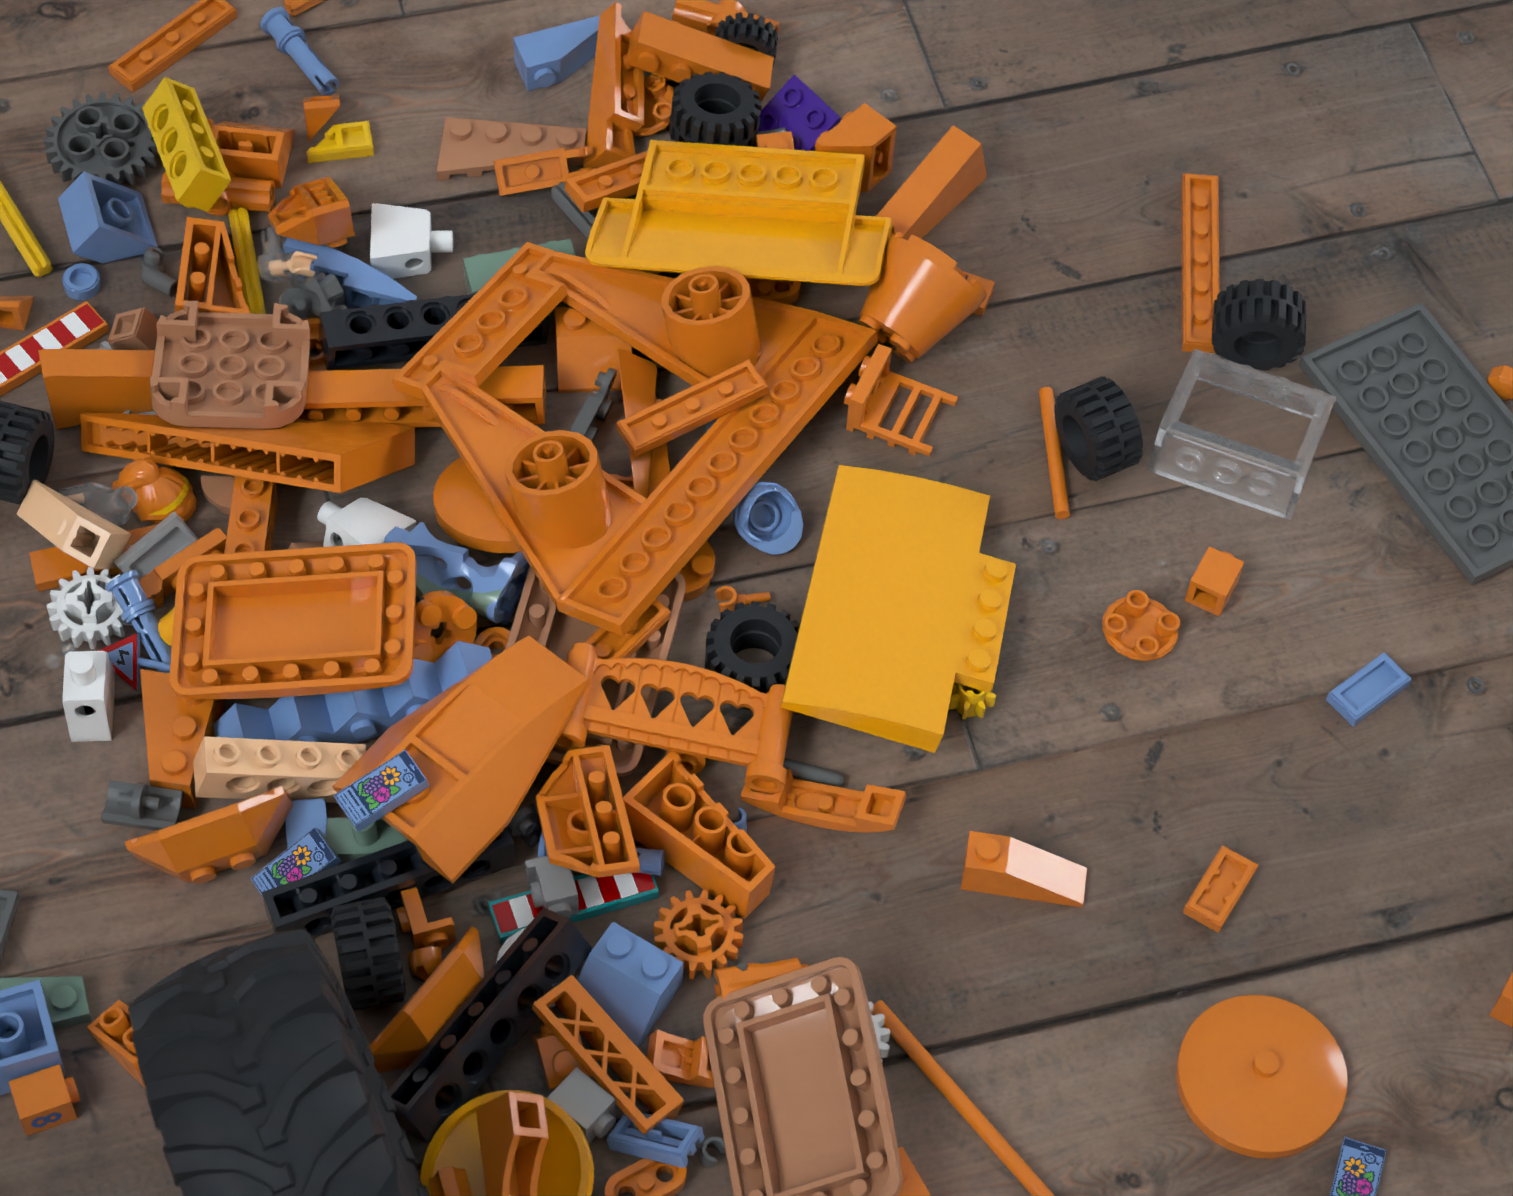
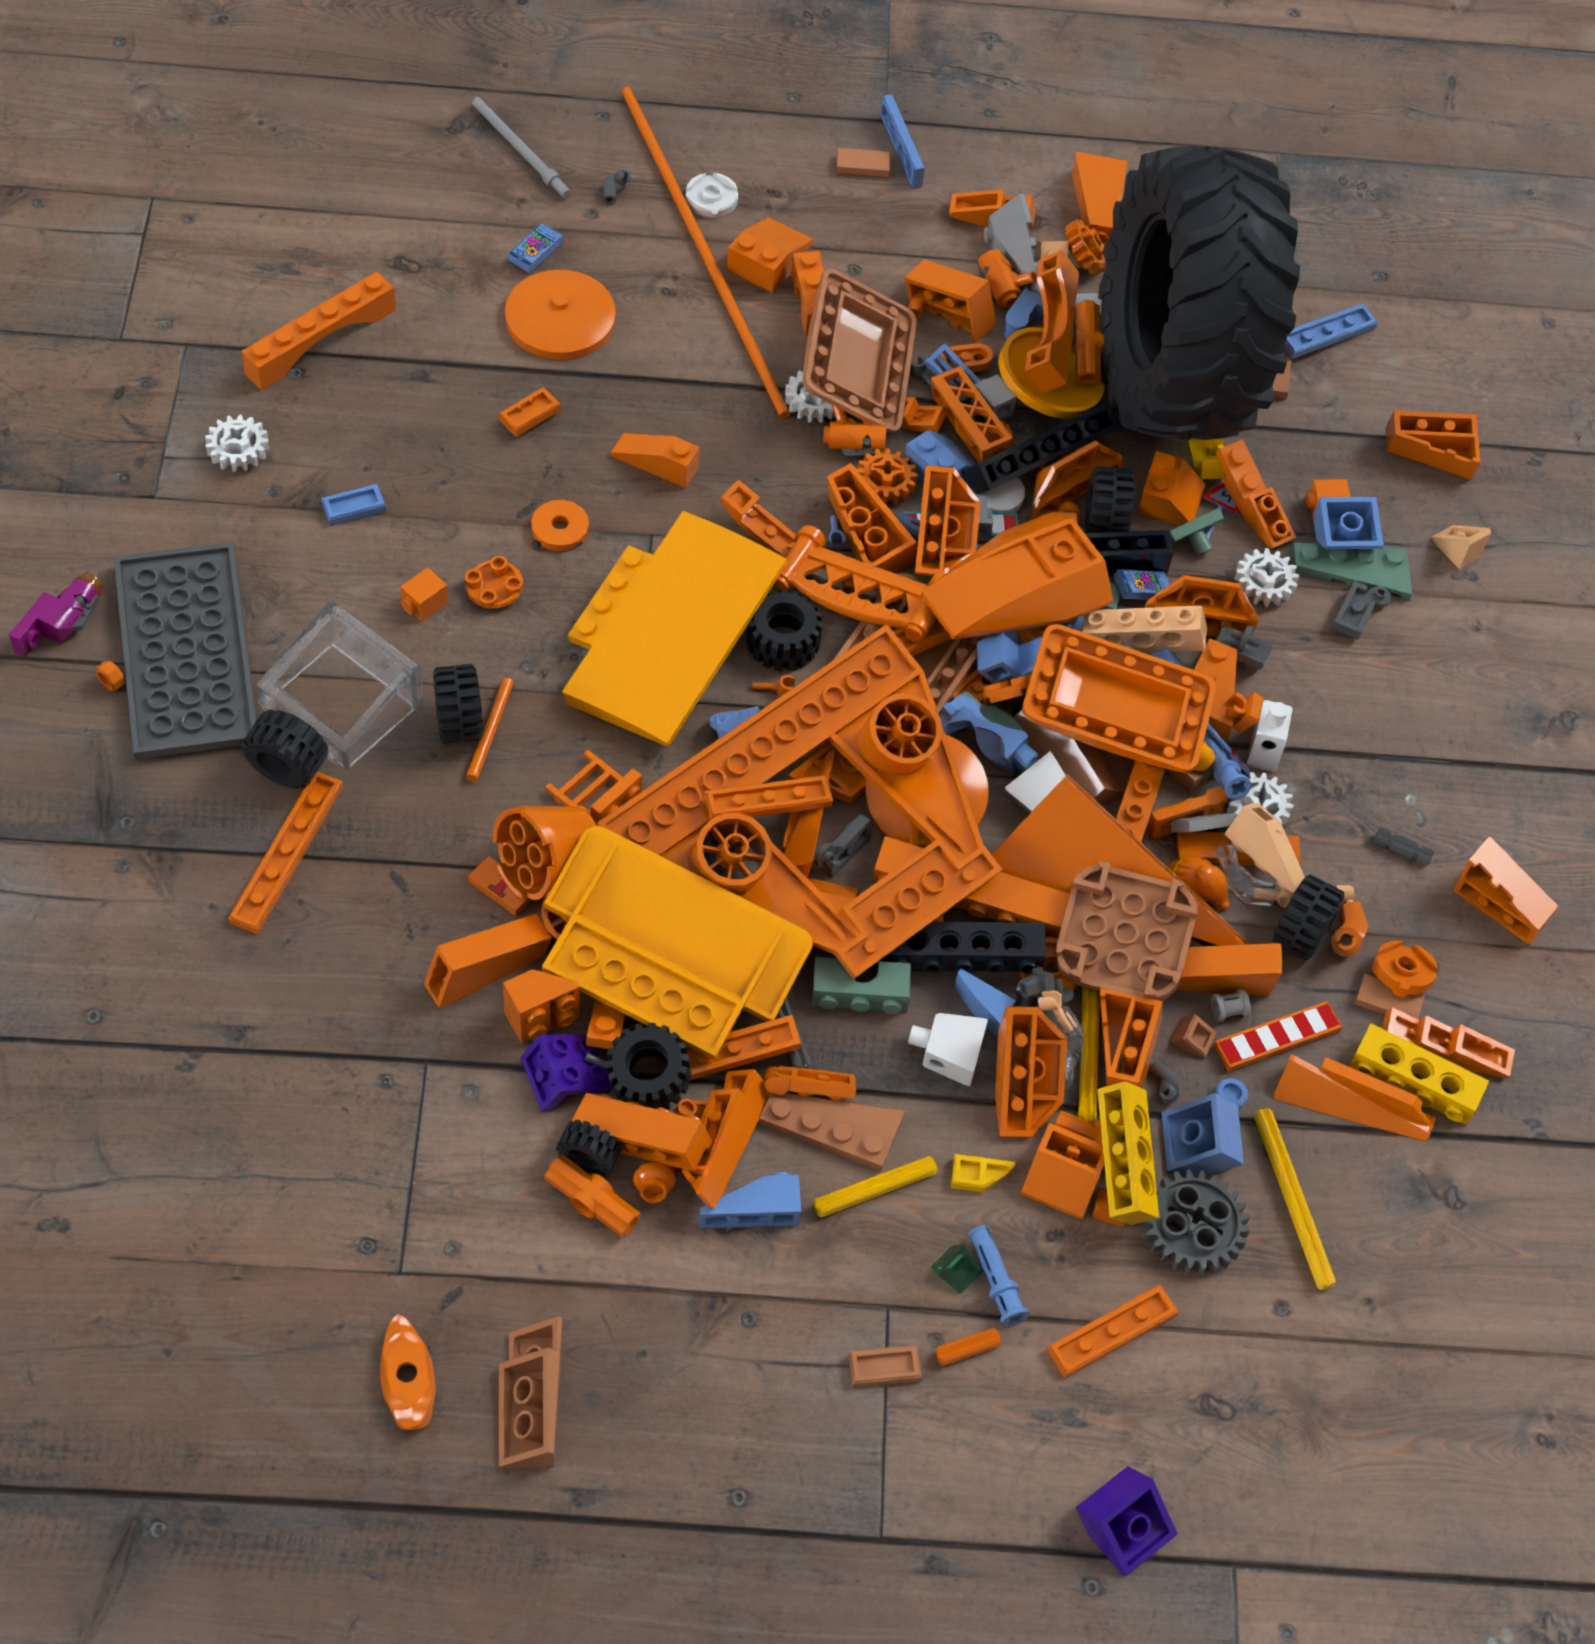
camera: 165 degrees left, 0 degrees up
(103, 932) = (1267, 577): none -> white gear
(124, 692) = (1245, 710): none -> orange tile
(318, 111) = (992, 1197): orange slope -> none
(345, 56) = (957, 1267): none -> clear green slope
(381, 790) = (1087, 546): tile -> none
(446, 102) = (874, 1186): none -> yellow axle
(1106, 718) = (560, 512): none -> orange tile

